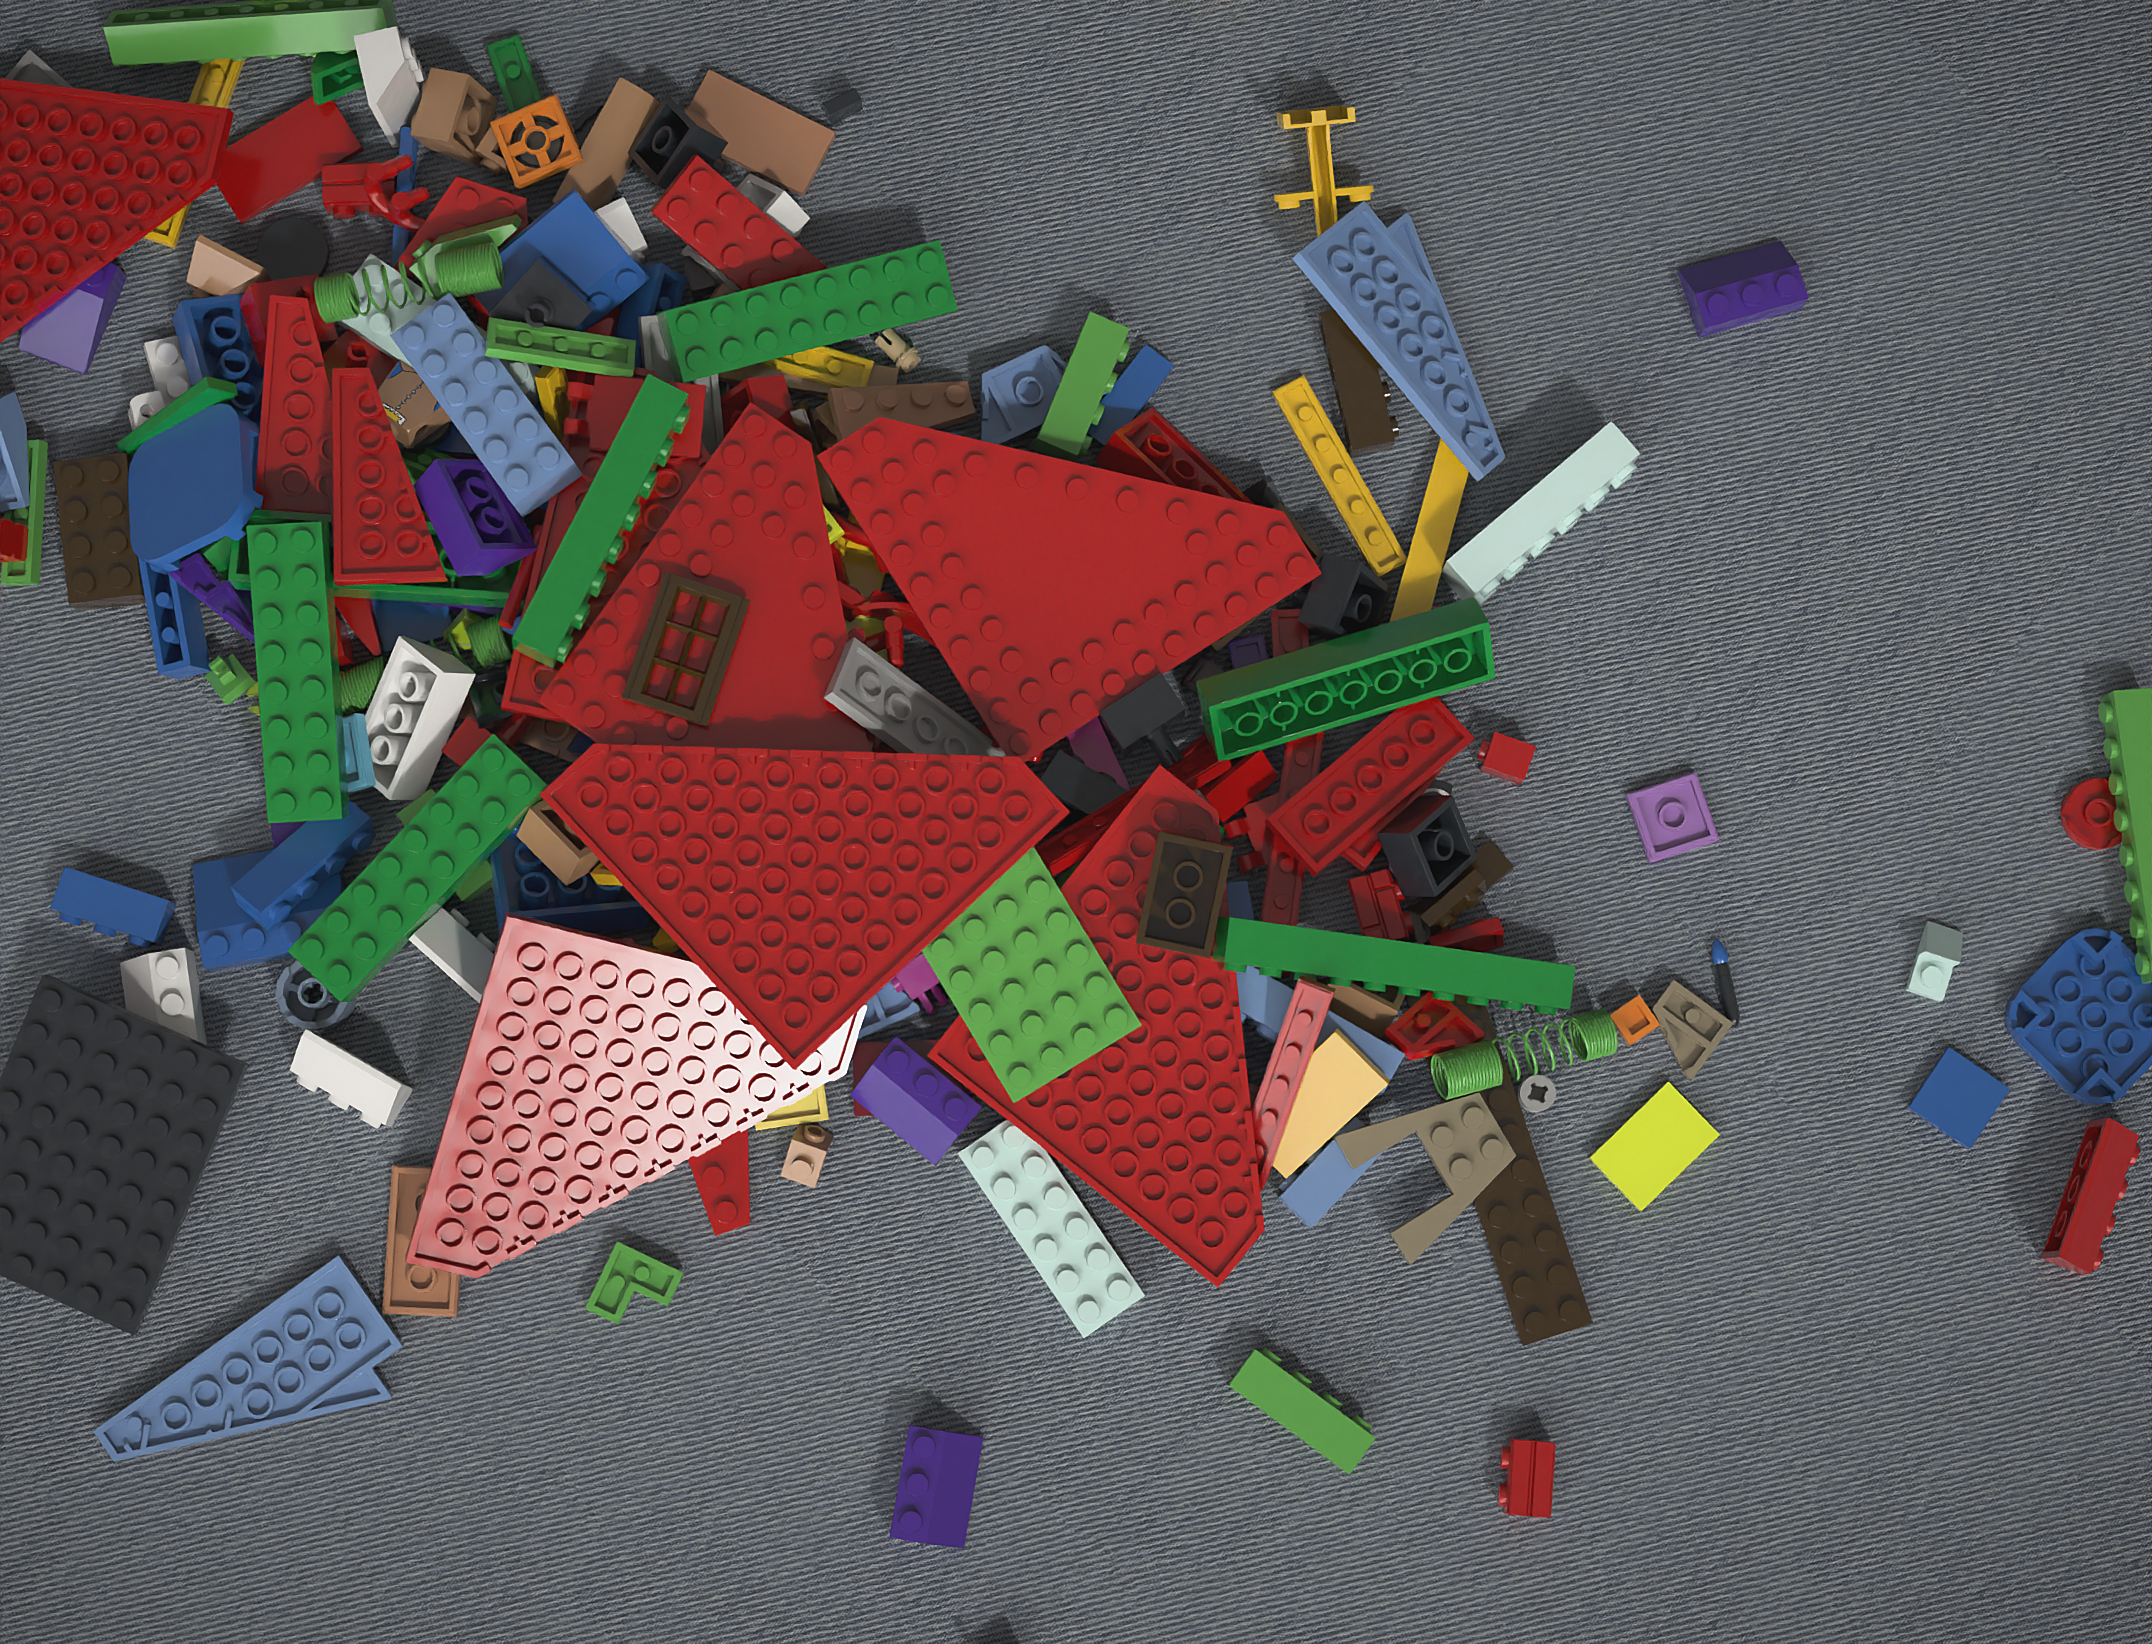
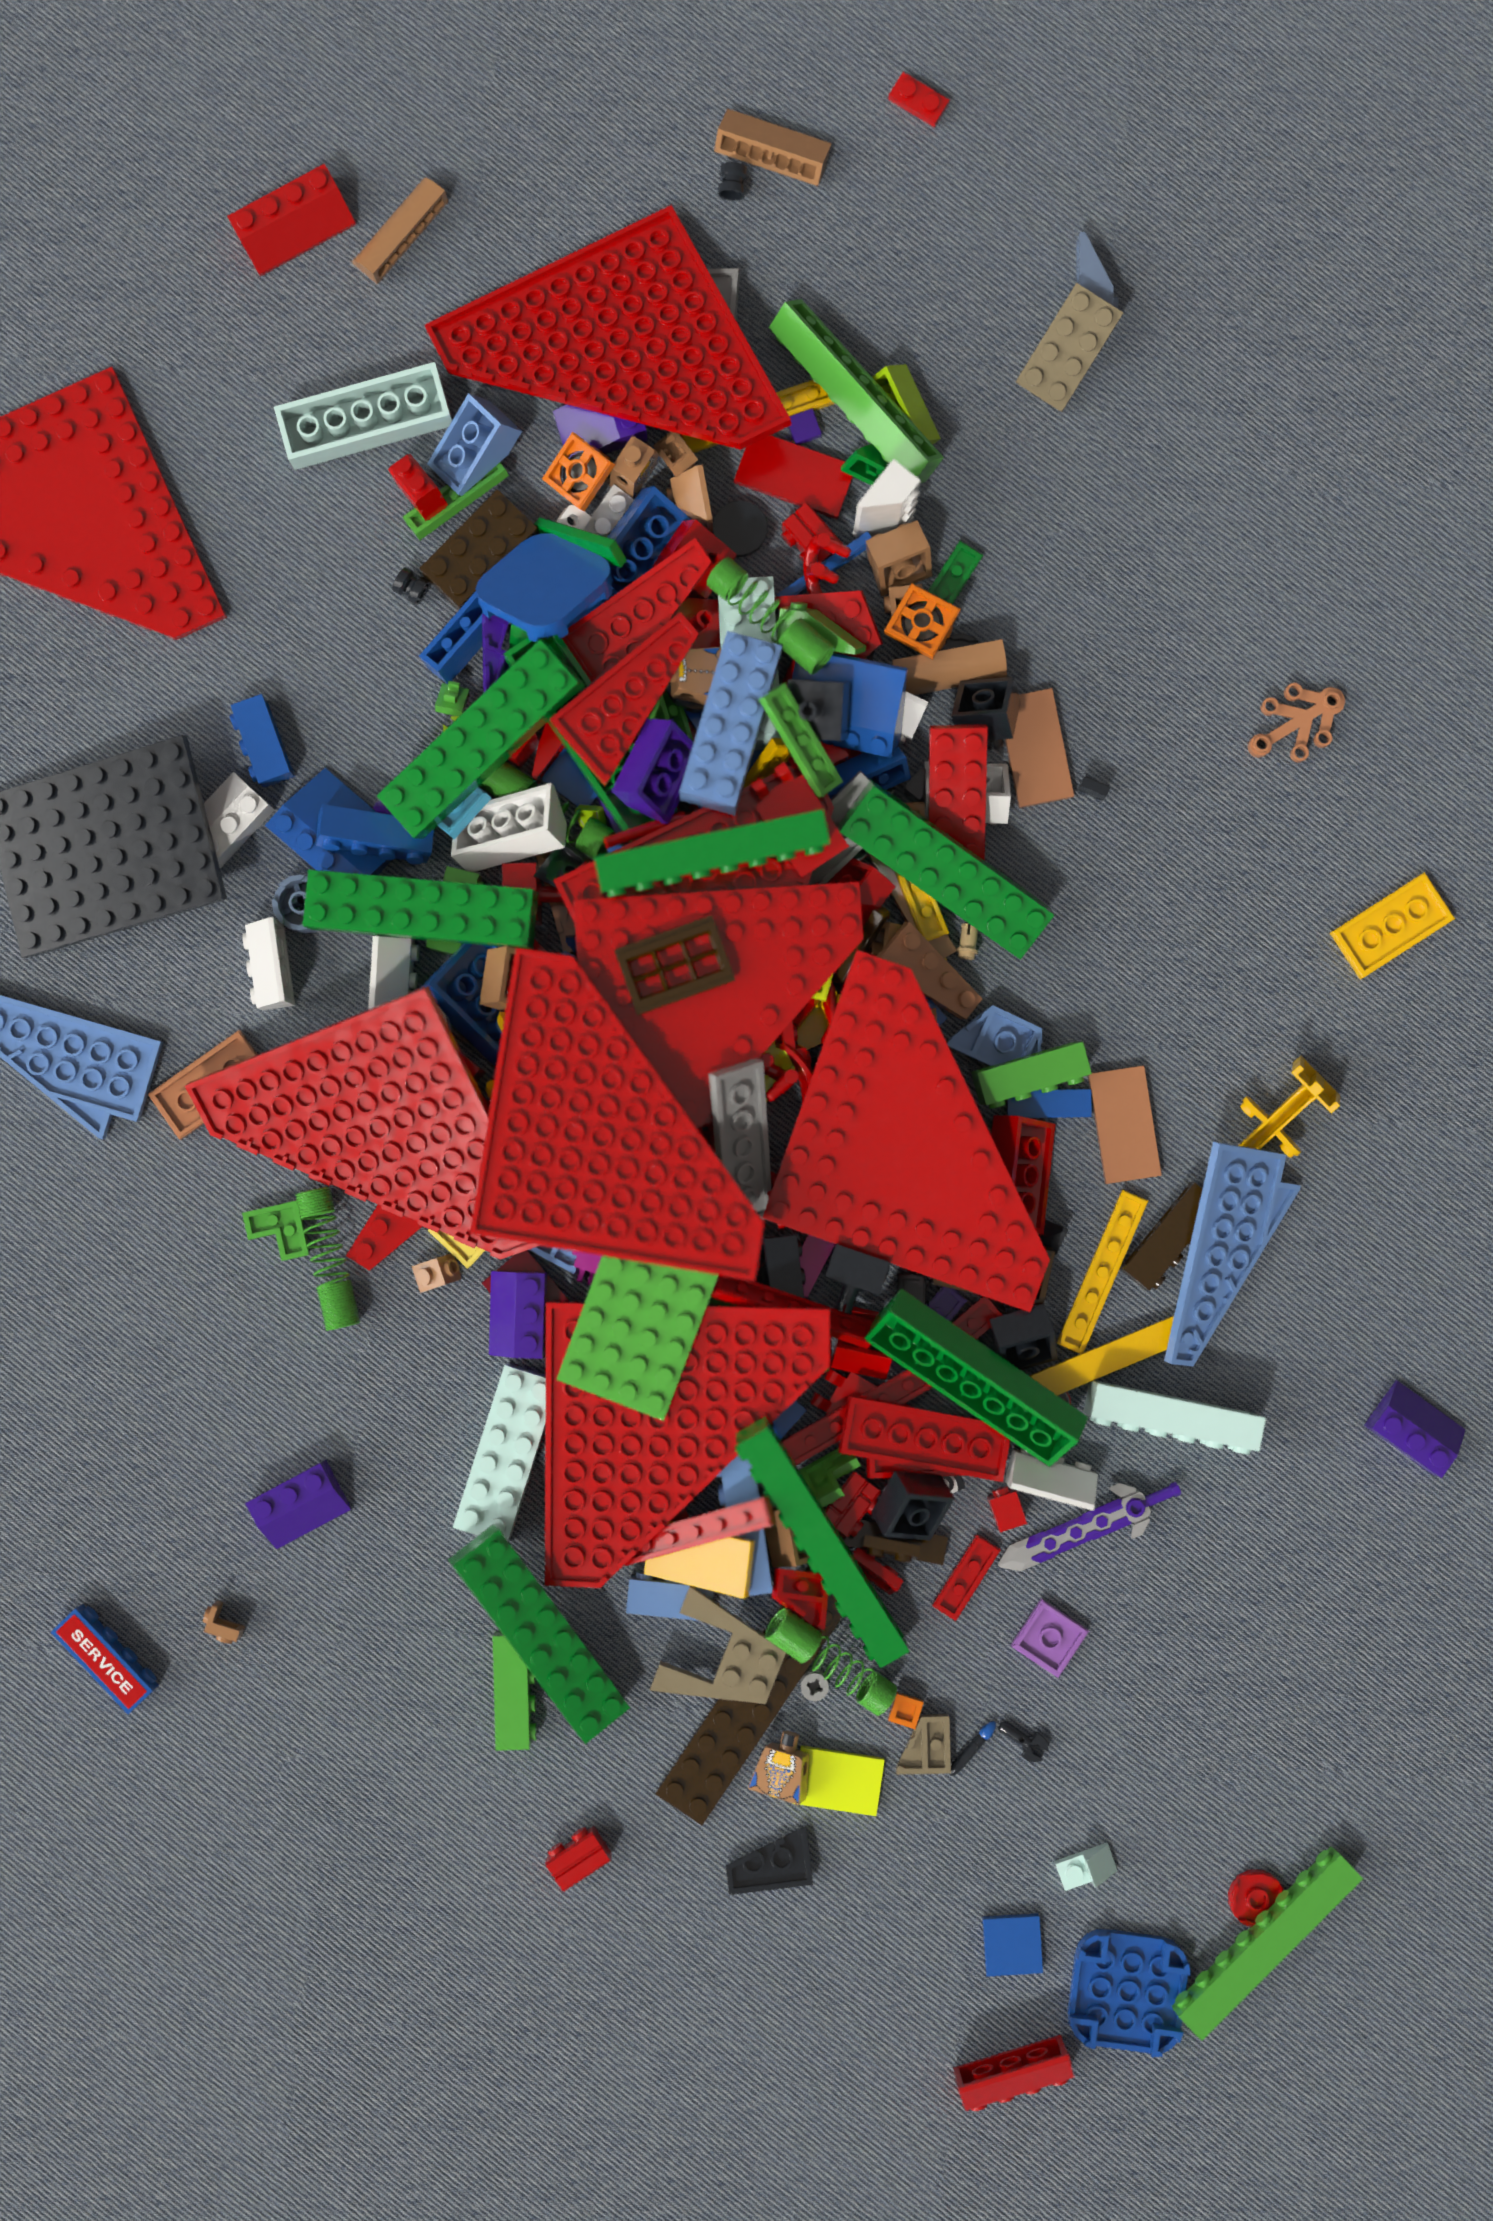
camera: 55 degrees right, 5 degrees up
(78, 629) = (411, 586): none -> black wheel
(108, 364) = (584, 474): none -> orange piece
(143, 307) = (634, 465): none -> medium nougat torso
(164, 255) = (675, 453): none -> medium nougat tile
(246, 109) = (804, 427): none -> dark purple tile
(750, 1278) = (336, 1298): none -> bright green piece
(1184, 894) = (760, 1388): dark brown brick -> none
(1208, 339) = (1124, 1124): none -> nougat tile
(1262, 1331) = (538, 1633): none -> green brick
(1326, 905) = (822, 1475): none -> bright green plate
(1516, 683) = (1059, 1482): none -> white slope
(1545, 854) = (966, 1577): none -> red tile
(1589, 686) = (1089, 1526): none -> sword
(1598, 1192) = (782, 1770): none -> torso
(1691, 1281) = (773, 1866): none -> black wing
(1758, 924) = (1024, 1741): none -> black bar

